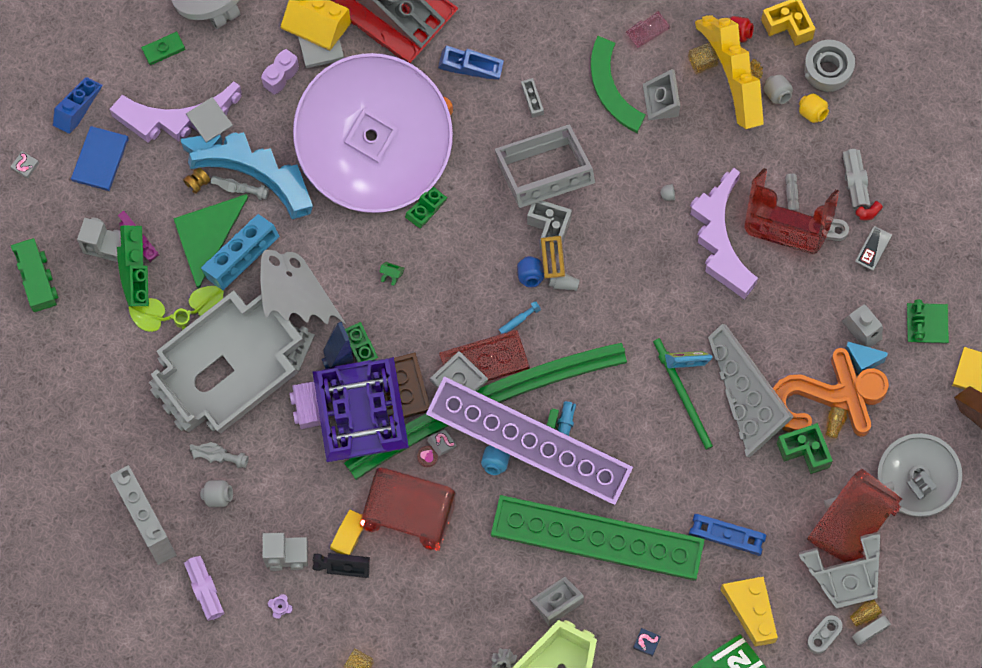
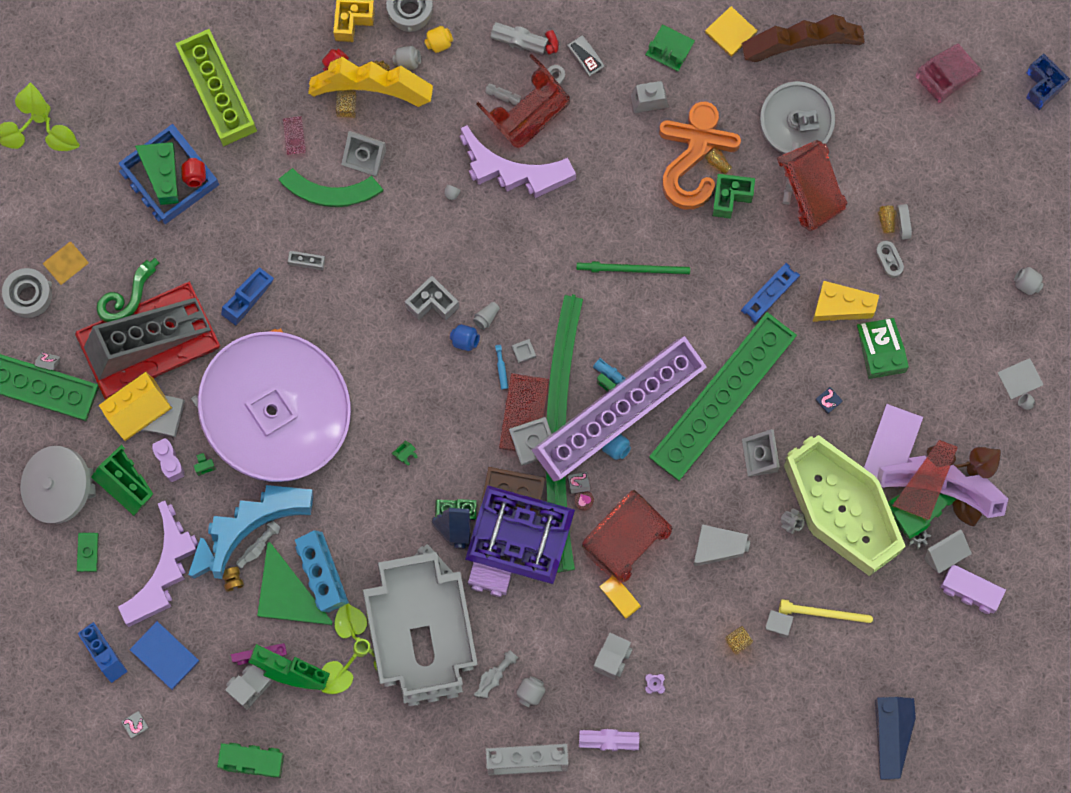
camera: 65 degrees left, 5 degrees up
(209, 119) = (183, 541): light grey window -> none
(240, 41) = (122, 481): none -> green wedge
(290, 104) = (204, 465): none -> green tile
(293, 294) = (386, 543): light grey piece -> none
(342, 564) = (645, 614): black plate -> none
(426, 207) = (359, 396): green slope -> none
(445, 602) = (719, 545): none -> light grey slope
(546, 332) = (523, 351): none -> light grey tile
(552, 185) = (404, 281): light grey window -> none
(561, 259) = (451, 305): pearl gold tile -> none
(687, 359) = (606, 248): dark azure slope -> none
(750, 395) = (660, 215): light grey wing -> none
(848, 581) = (858, 215): light grey wing -> none
(865, 357) = (676, 110): dark azure slope -> none

